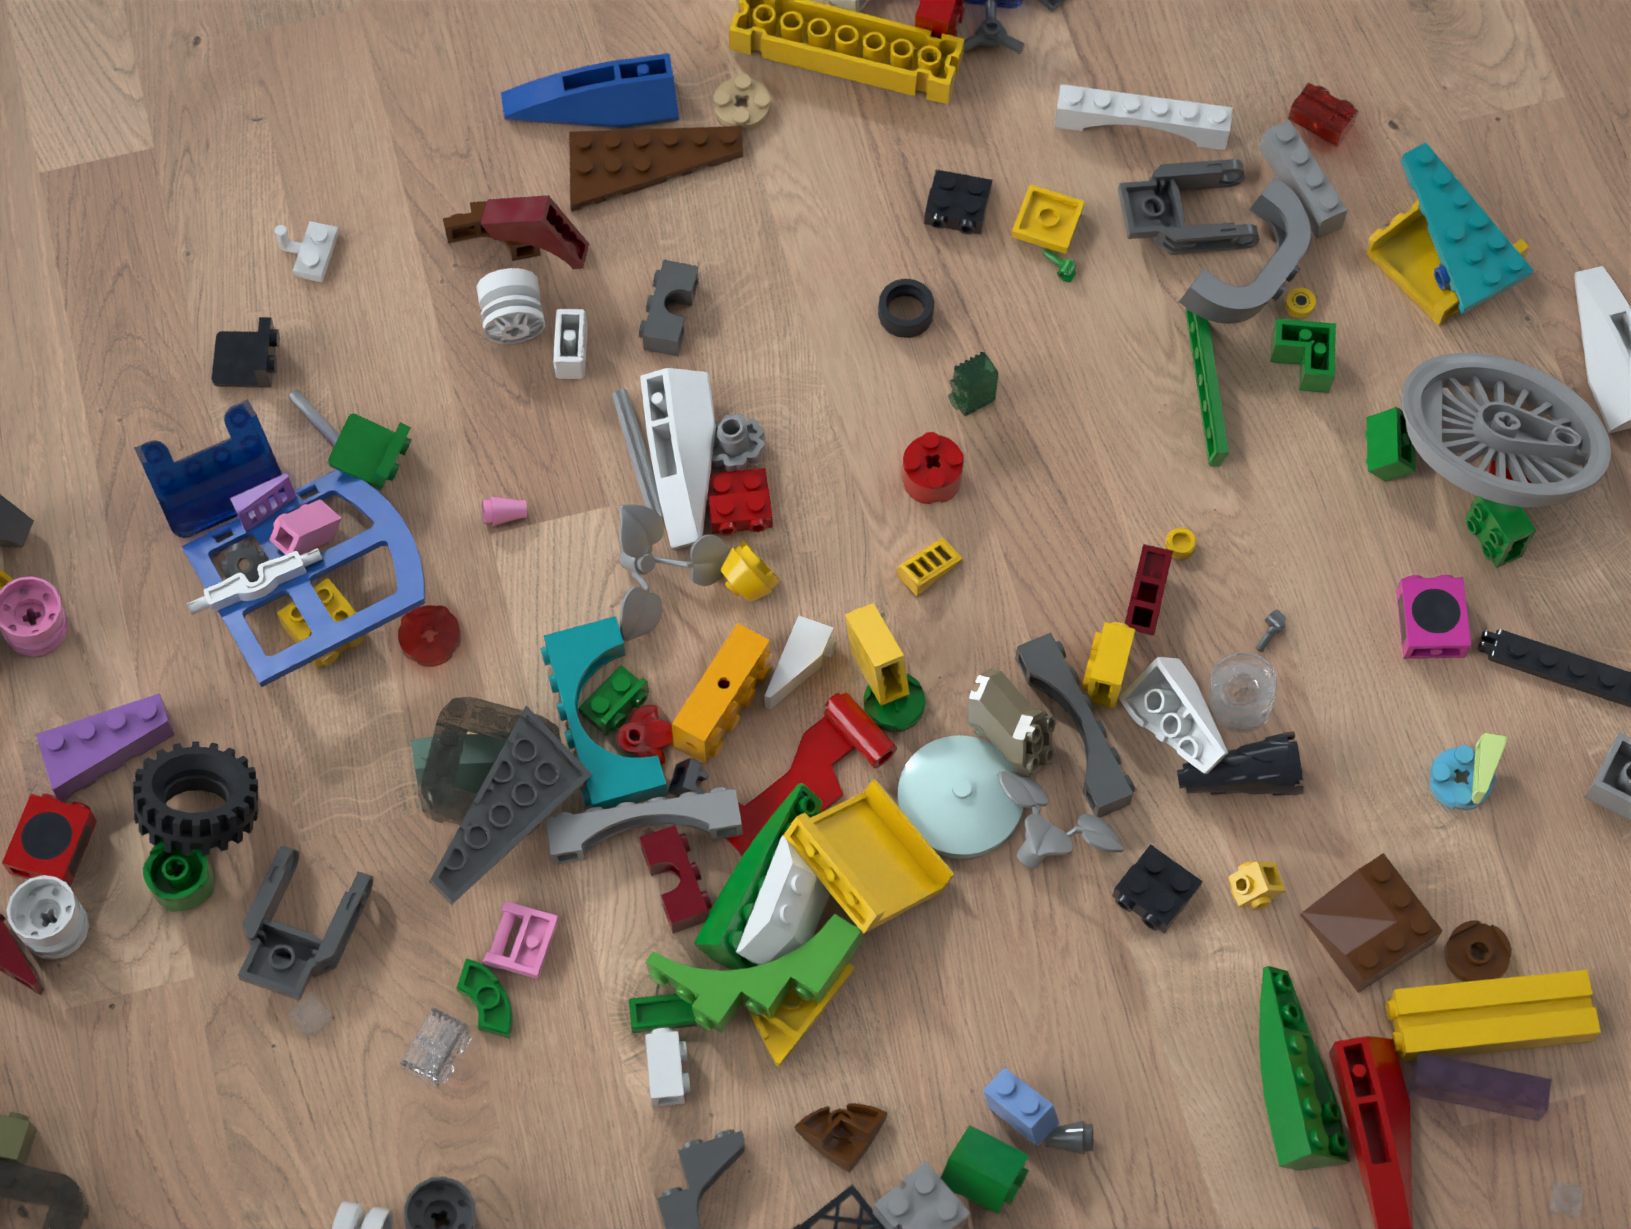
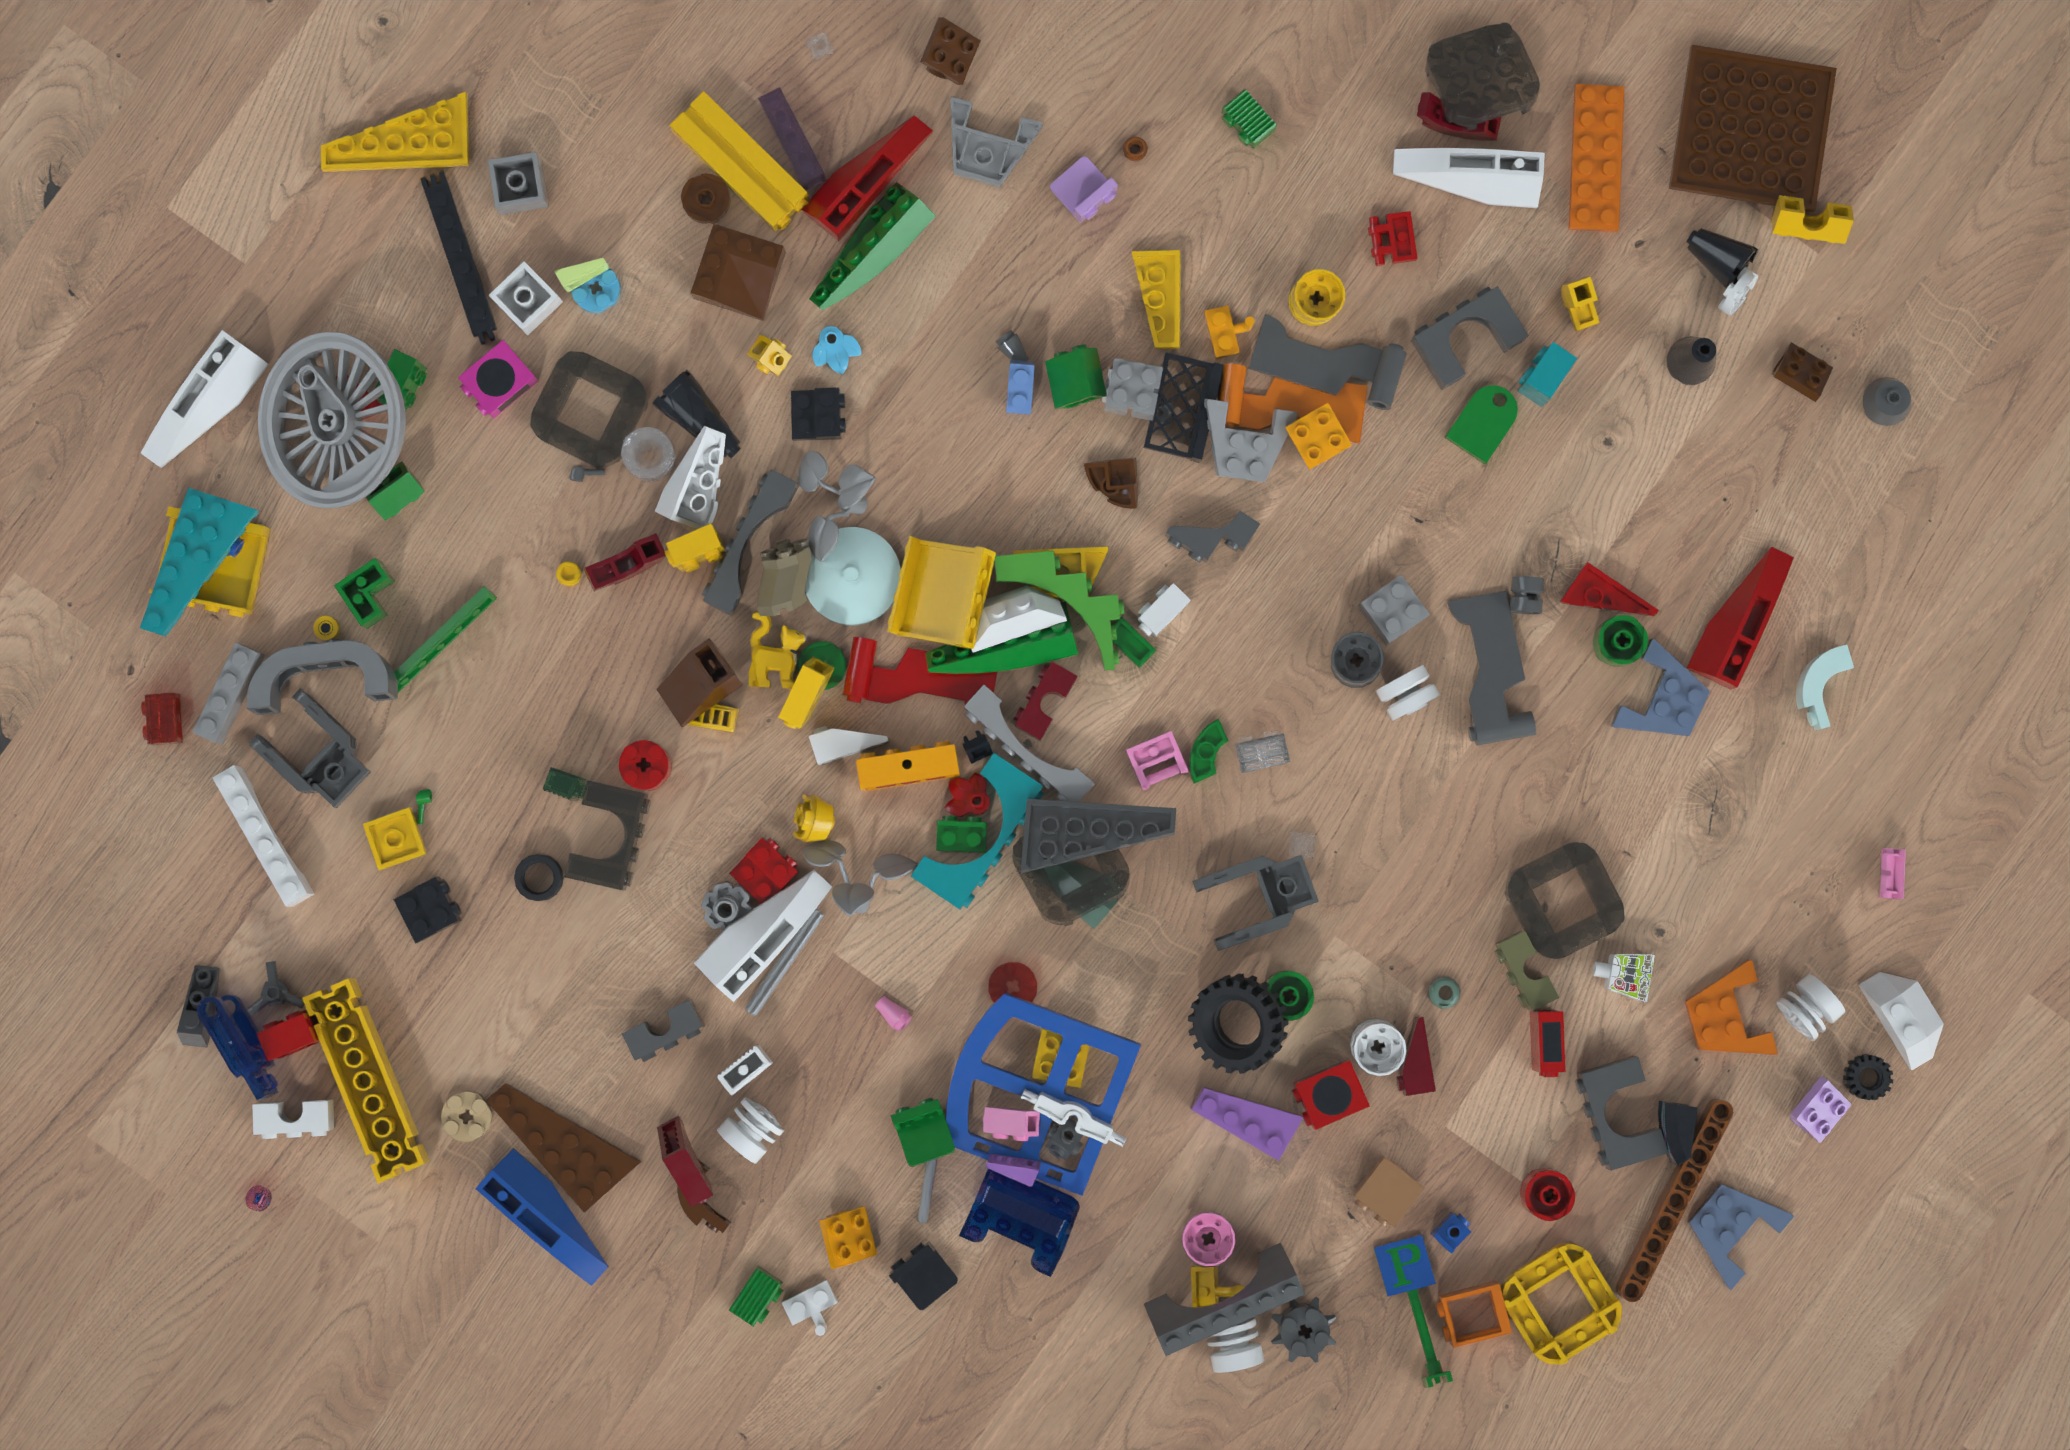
camera: 130 degrees left, 20 degrees up
(50, 1043) = (1434, 989): none -> sand green piece
(340, 318) = (847, 1237): none -> light orange plate
(363, 210) = (756, 1296): none -> green brick
(857, 369) = (614, 870): none -> clear smoke arch
(938, 658) = (773, 659): none -> yellow animal
(971, 574) = (698, 683): none -> reddish brown slope
(1208, 957) = (835, 353): none -> medium azure plate
(1387, 677) = (556, 393): none -> clear smoke plate
(1499, 698) = (525, 298): none -> white brick

